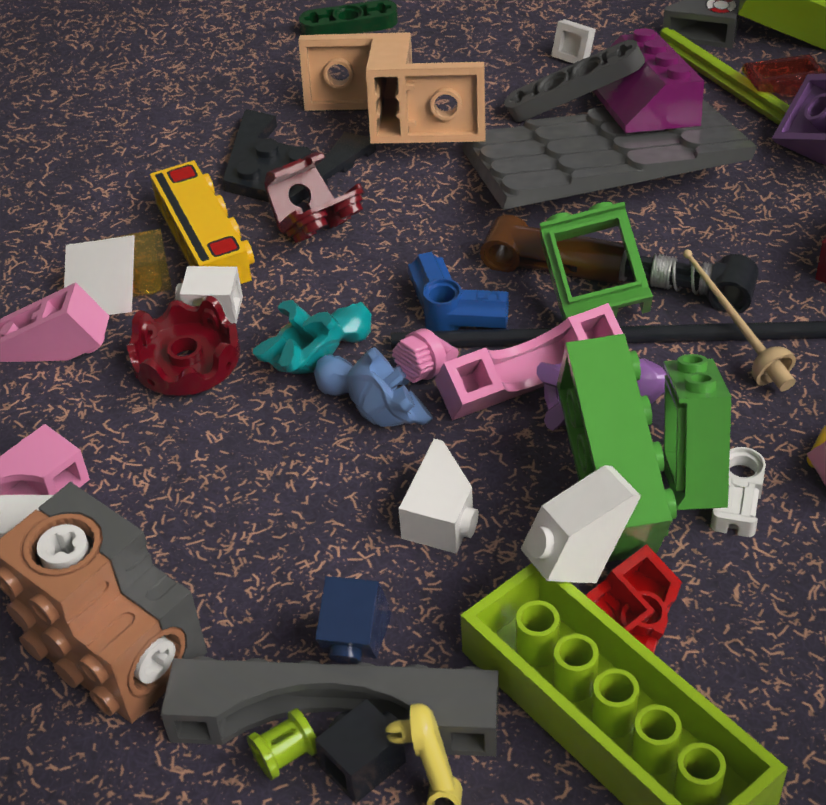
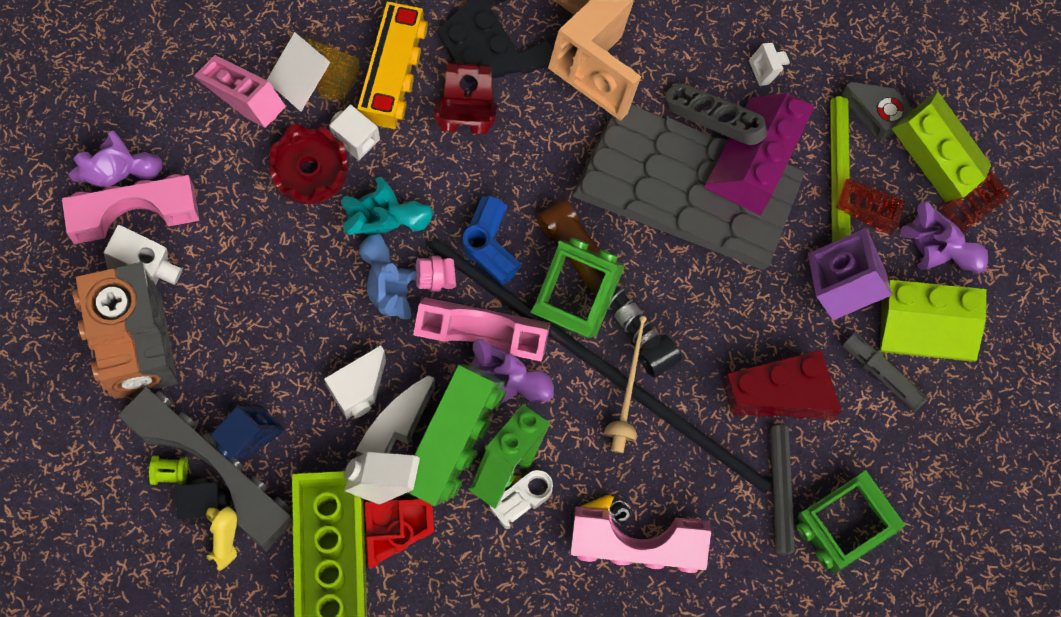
camera: 30 degrees right, 25 degrees up
(522, 495) = (398, 418): none -> white slope

